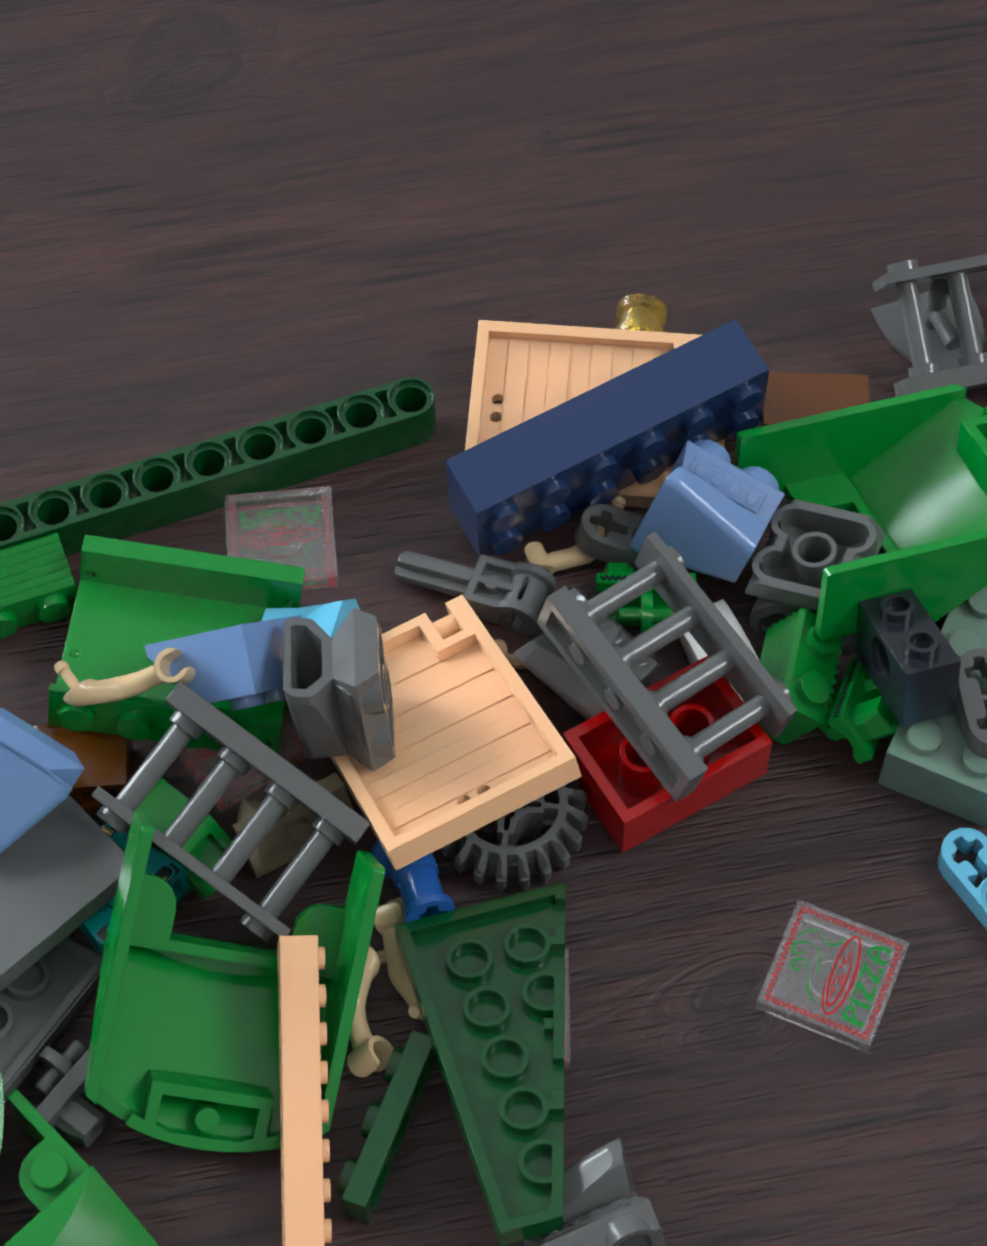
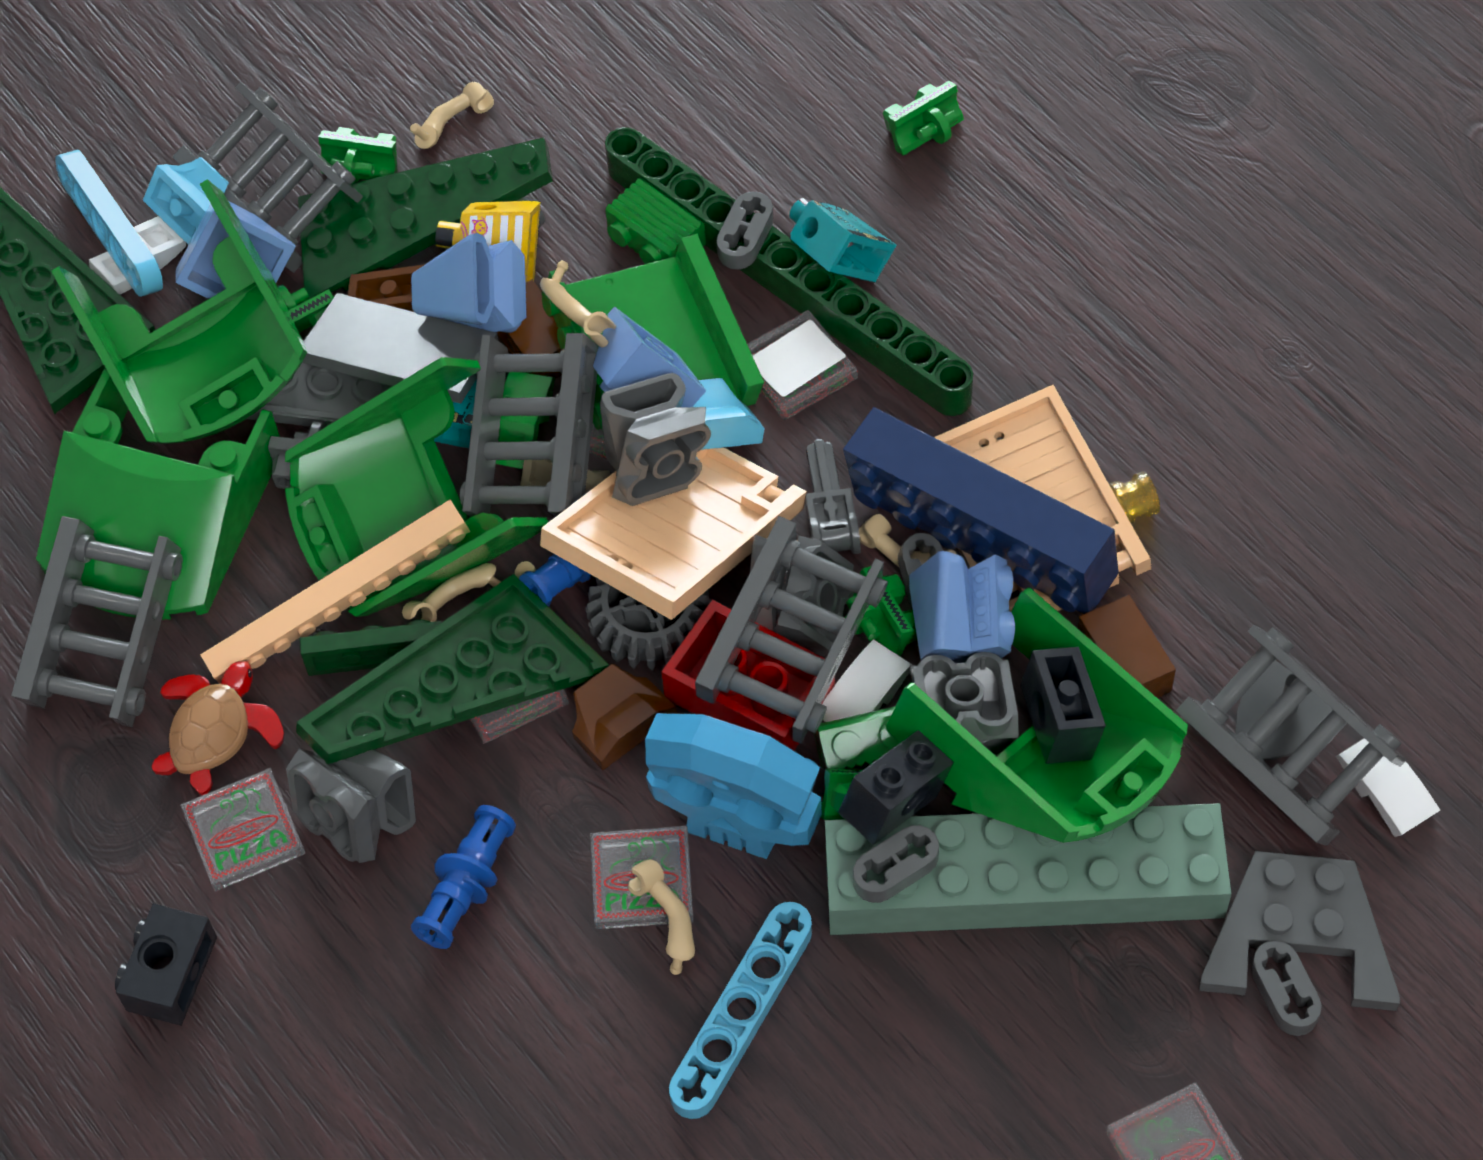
camera: 65 degrees right, 0 degrees up
(68, 280) = (925, 118): none -> green hips
(96, 499) = (737, 227): none -> dark grey beam
(185, 410) = (826, 233): none -> teal torso
(283, 528) = (797, 358): none -> white sticker
(623, 907) = (616, 713): none -> reddish brown slope
(750, 1158) = (463, 877): none -> blue piece
(811, 809) = (732, 782): none -> dark azure brick
(860, 963) = (680, 936): none -> tan piece
(879, 473) = (1062, 705): none -> black brick

